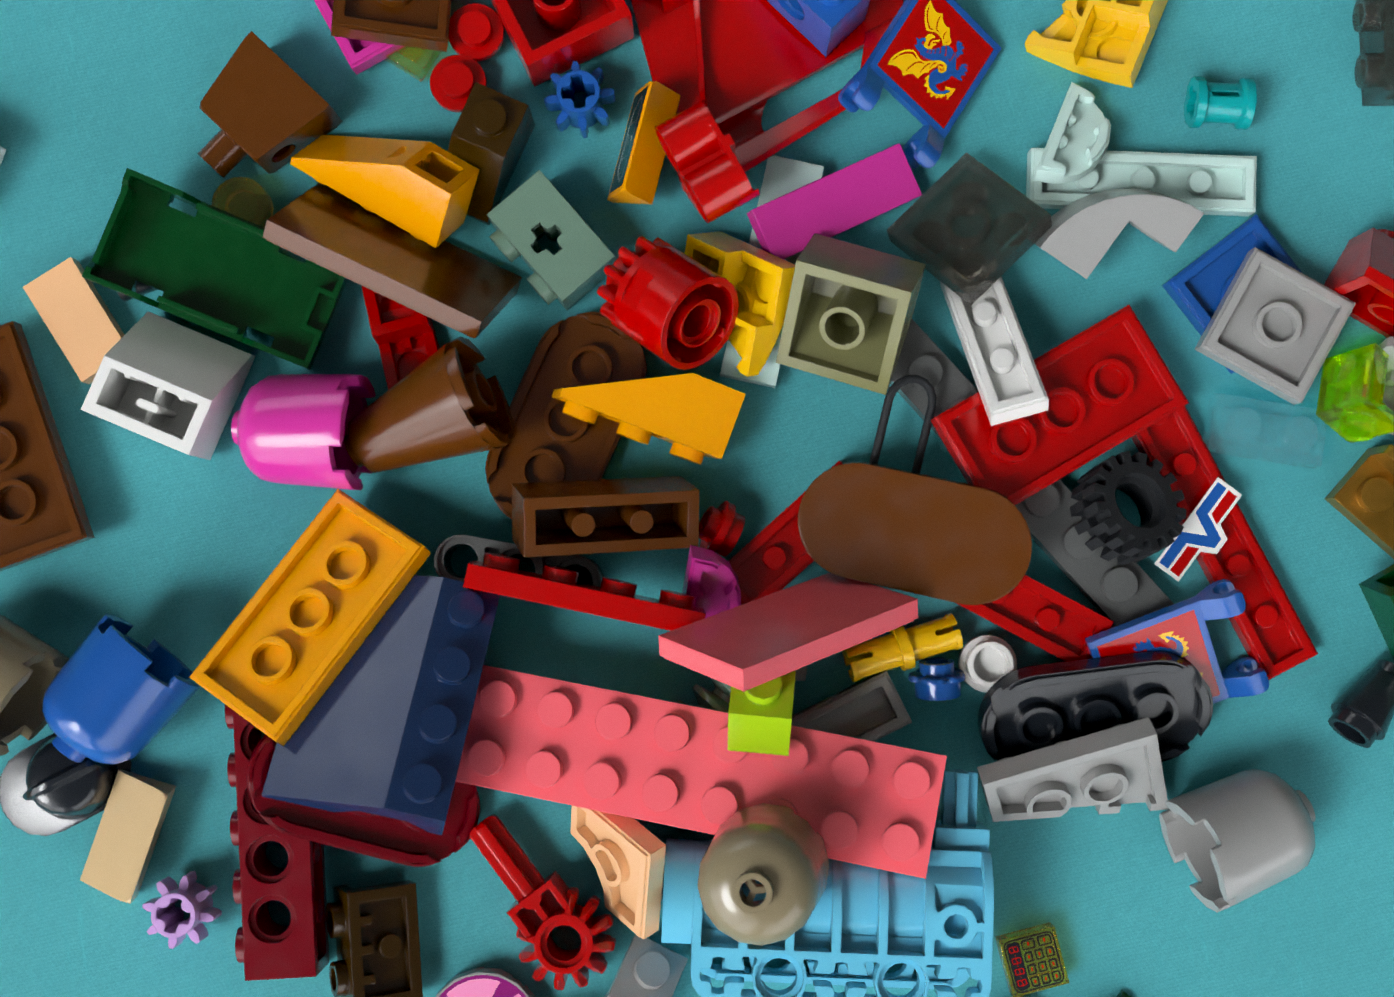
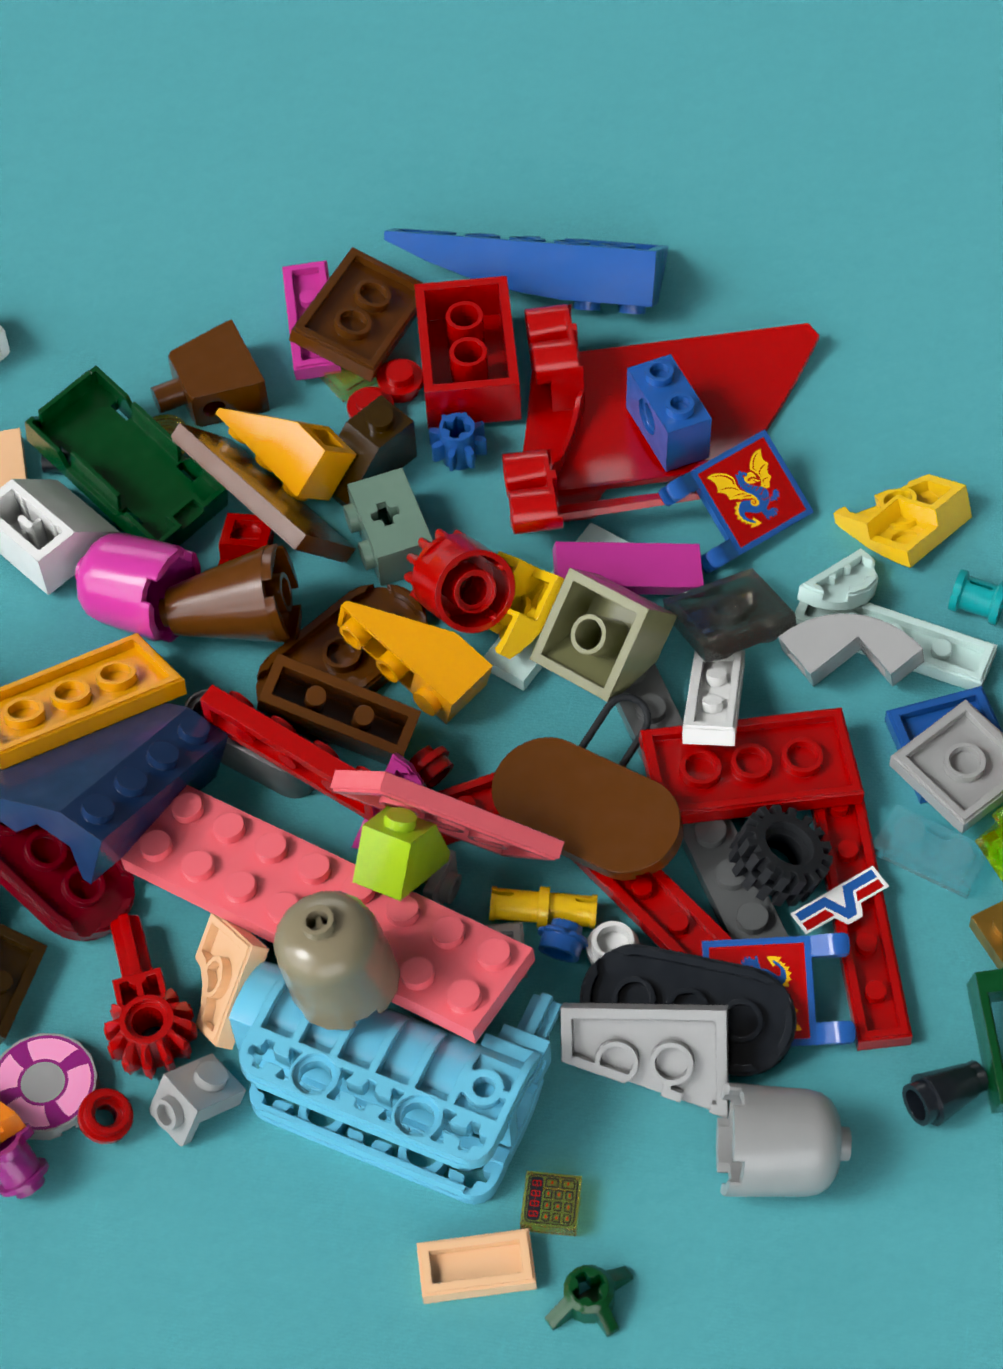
camera: 25 degrees right, 30 degrees down
(641, 152) = (486, 489): light orange slope -> none

